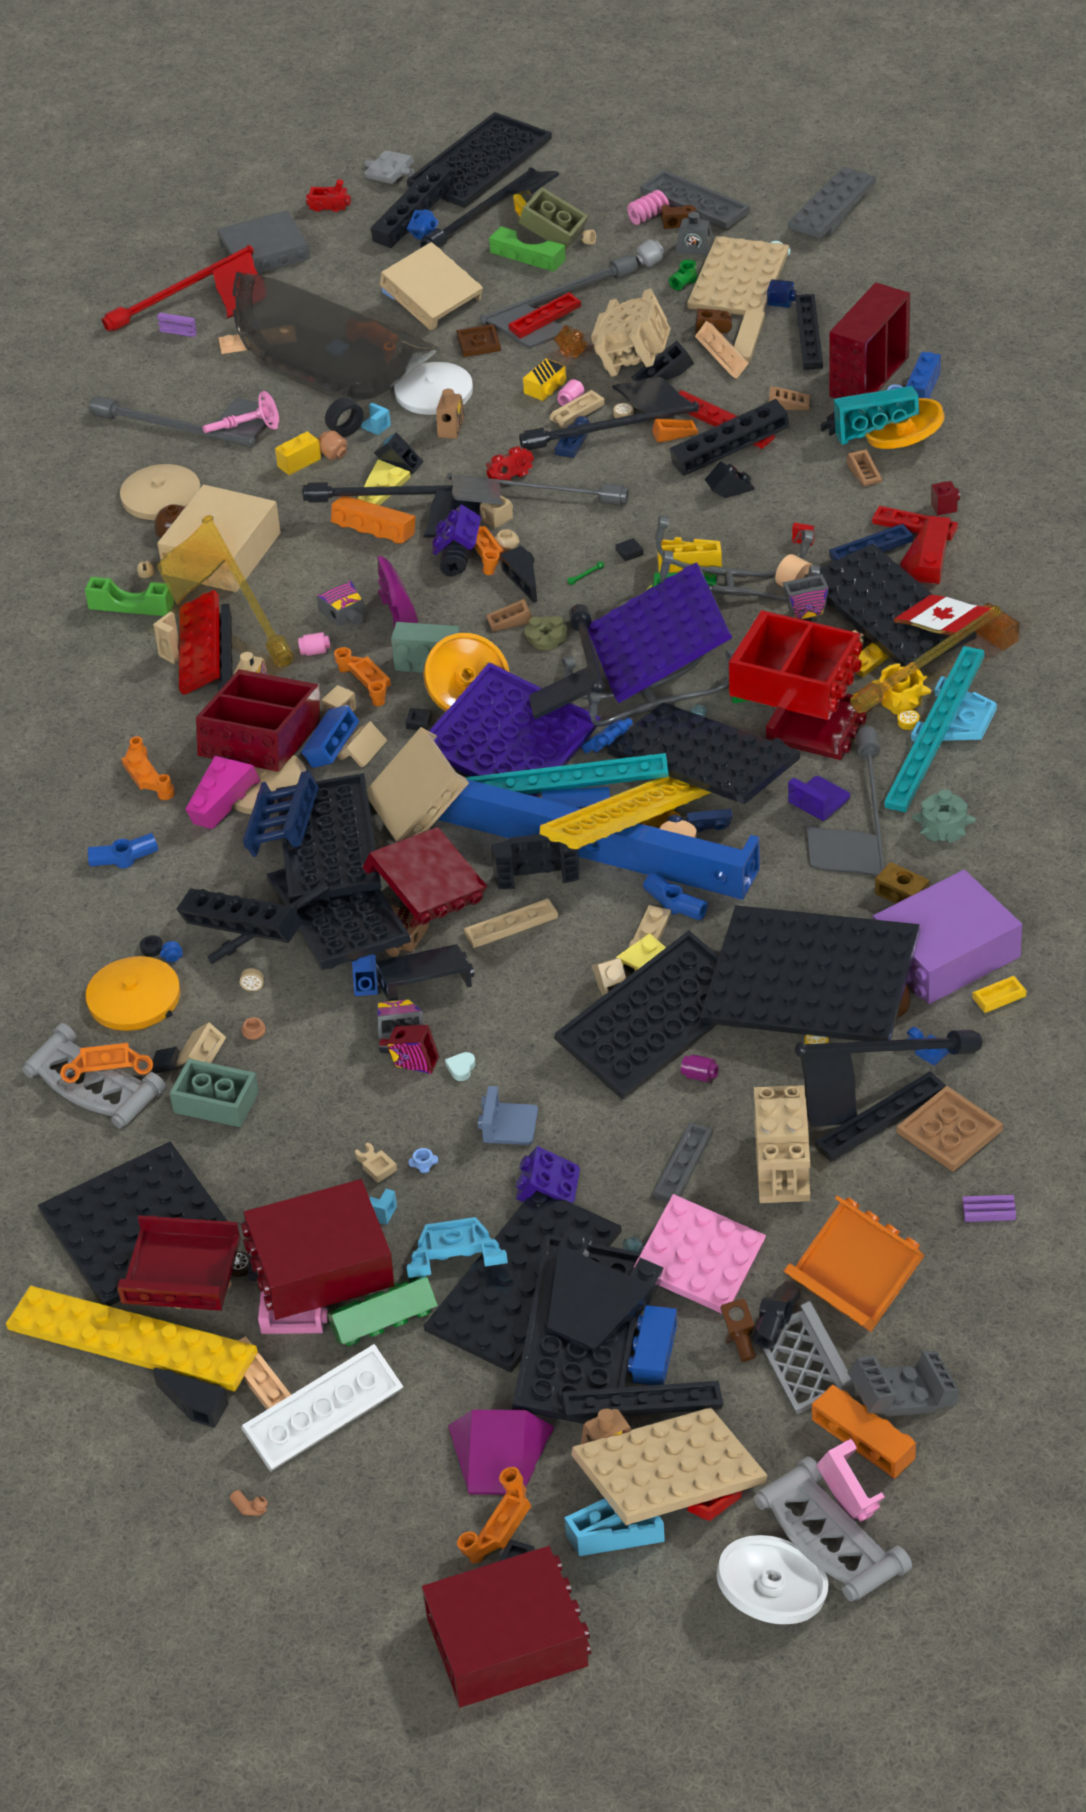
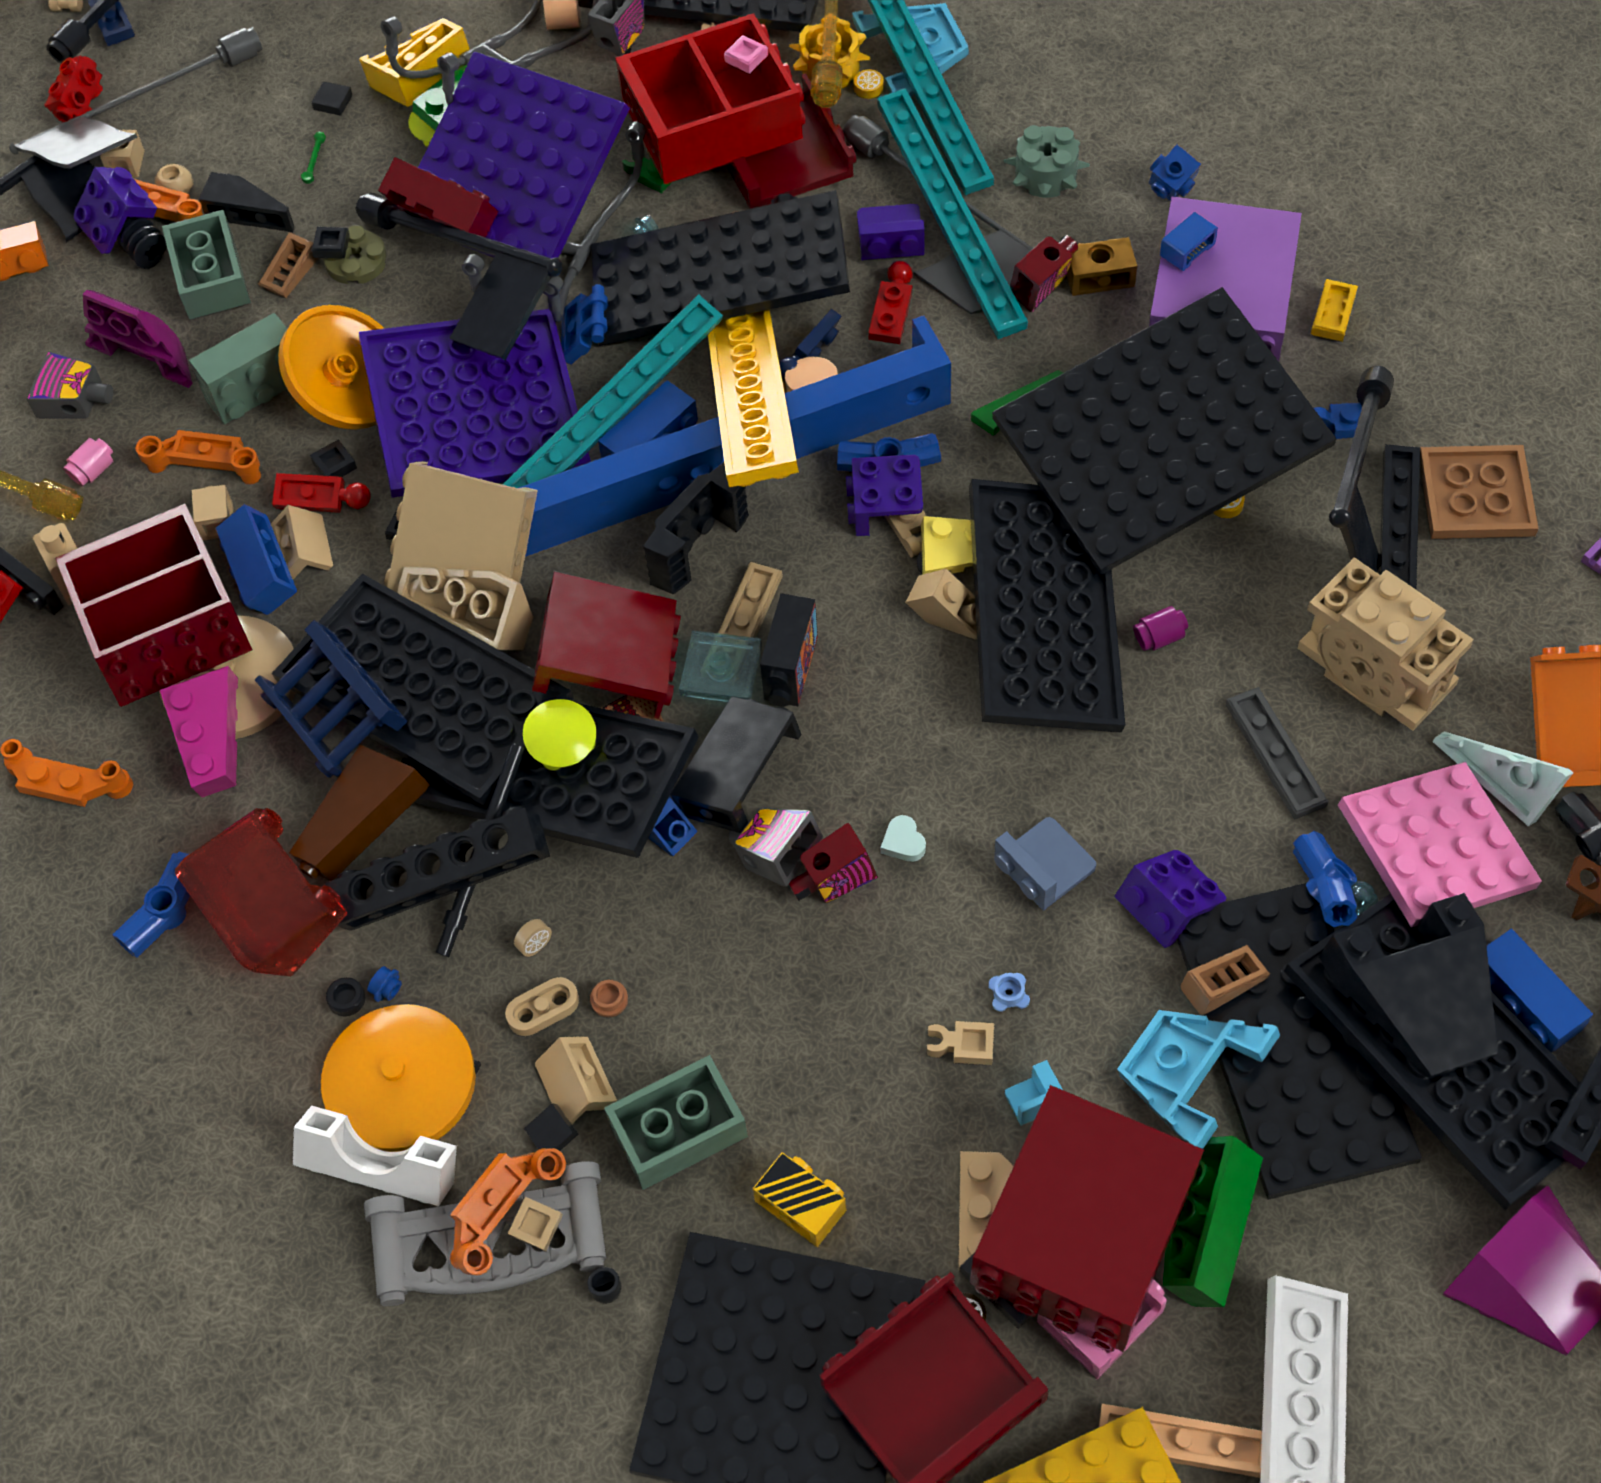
camera: 45 degrees left, 15 degrees up
(72, 994) = (331, 1147): none -> white arch
(110, 1083) = (535, 1224): none -> tan plate
(112, 1132) = (603, 1280): none -> black hinge
(151, 872) = (259, 896): none -> clear red windscreen
(224, 1009) = (541, 1005): none -> tan plate
(228, 1165) = (800, 1198): none -> brick
(239, 871) = (356, 812): none -> reddish brown slope
(352, 894) = (559, 733): none -> neon yellow dish
(388, 816) = (473, 600): none -> tan wedge
(391, 726) = (318, 493): none -> red plate
(468, 588) = (206, 264): none -> sand green brick
(472, 930) = (720, 666): none -> clear light blue plate
(503, 1228) = (1204, 992): none -> medium nougat slope
(507, 943) = (789, 650): none -> black brick
(537, 616) = (330, 242): none -> black tile
(600, 625) = (437, 199): none -> dark red wedge
(622, 1226) = (1328, 879): none -> blue piece
(646, 907) = (883, 489): none -> dark purple bracket
(775, 1254) = (1514, 779): none -> light aqua wing
(777, 830) = (892, 305): none -> red plate
(825, 649) = (746, 54): none -> bright pink tile
(856, 807) = (952, 214): none -> teal plate
(860, 863) = (1042, 271): none -> dark red torso
(935, 892) = (1188, 241): none -> blue piece
(1001, 868) = (1174, 174): none -> blue brick

